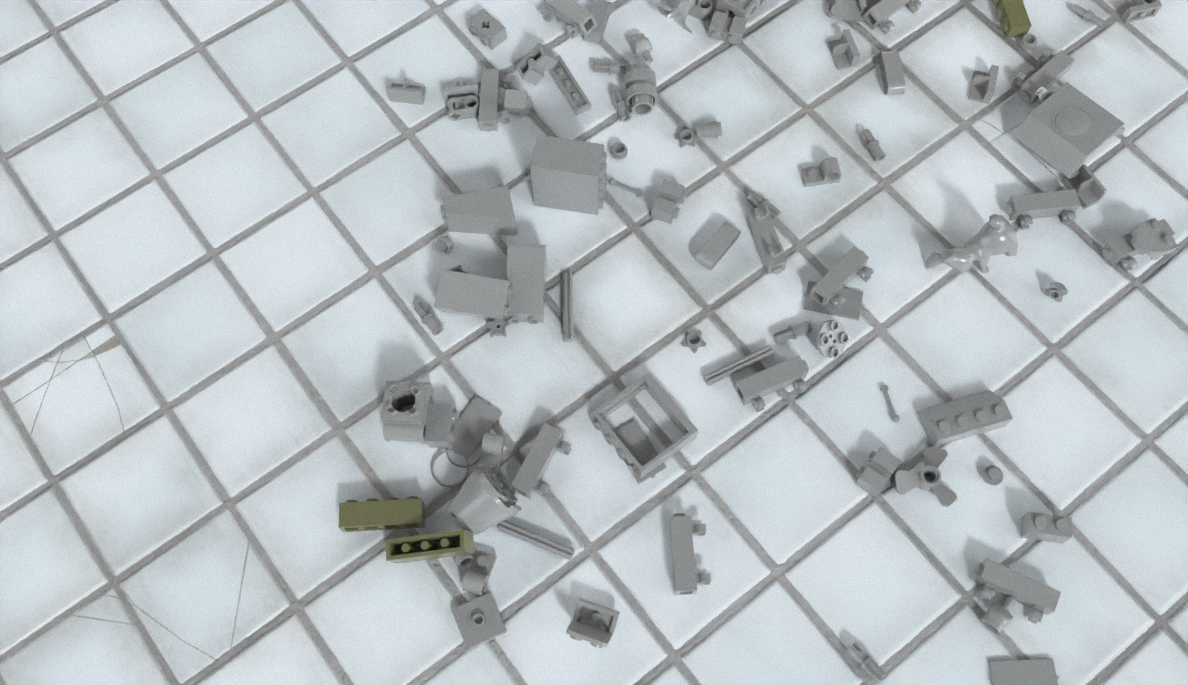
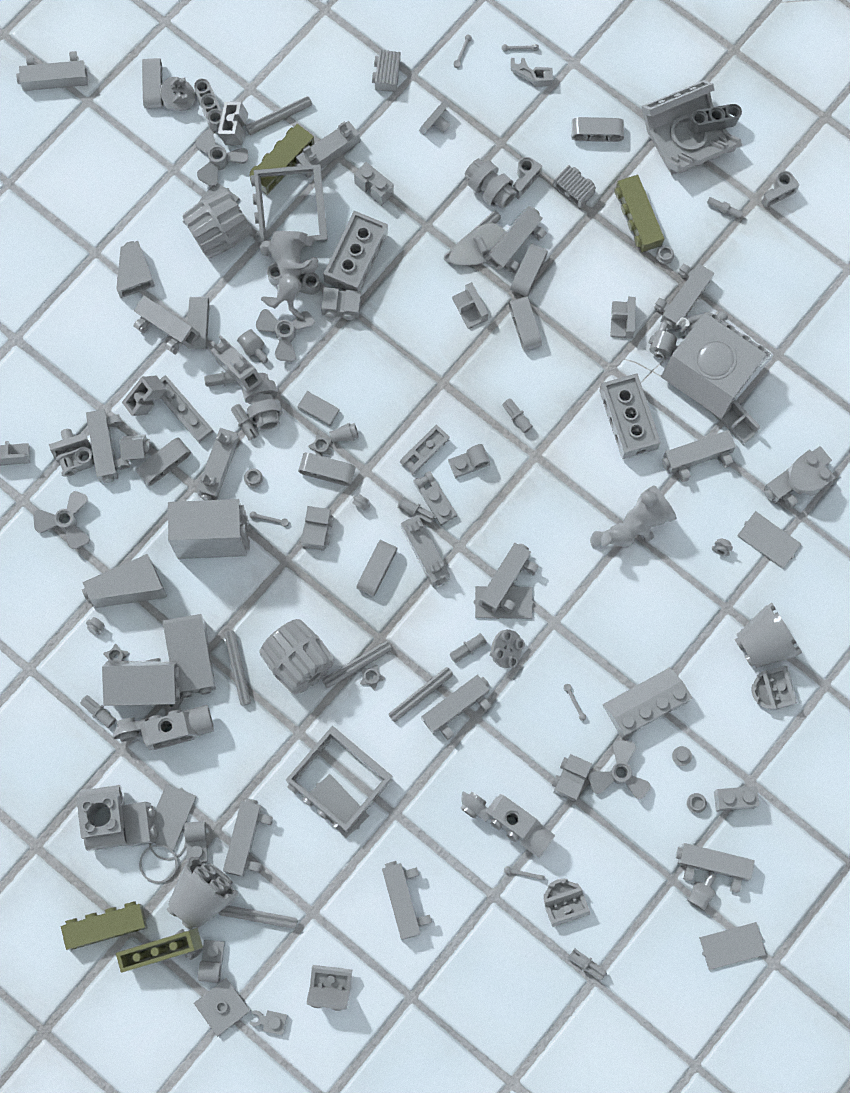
camera: 15 degrees left, 10 degrees up
(425, 150) = (45, 521): none -> light grey piece
(487, 29) = (73, 349): light grey brick -> none
(488, 344) = (185, 728): none -> light grey brick
(527, 647) = (273, 1021): none -> light grey plate
(541, 122) = (163, 461): none -> light grey beam
(595, 124) = (218, 464): none -> light grey brick
(624, 52) = (235, 364): none -> light grey brick
(627, 302) = (296, 656): none -> light grey wheel
(672, 40) = (268, 323): none -> light grey piece
(682, 326) = (357, 664): none -> light grey axle
(687, 155) = (326, 469): none -> light grey beam
(690, 107) = (318, 408): none -> light grey tile
(713, 188) = (361, 502): none -> light grey plate
(781, 156) = (425, 449): none -> light grey plate
(783, 199) = (435, 499): none -> light grey plate
(797, 549) = (508, 870): none -> light grey hinge
(809, 496) = (526, 830): none -> light grey brick
(852, 593) = (564, 902): none -> light grey slope
(901, 31) = (529, 270): none -> light grey beam
(980, 162) = (637, 406): none -> light grey brick
(1002, 524) = (696, 803): none -> light grey plate
(1018, 108) = (662, 342): none -> light grey piece
(1096, 431) = (774, 689): none -> light grey slope
(1097, 378) = (767, 639): none -> light grey cone
(1102, 295) = (769, 539): none -> light grey piece

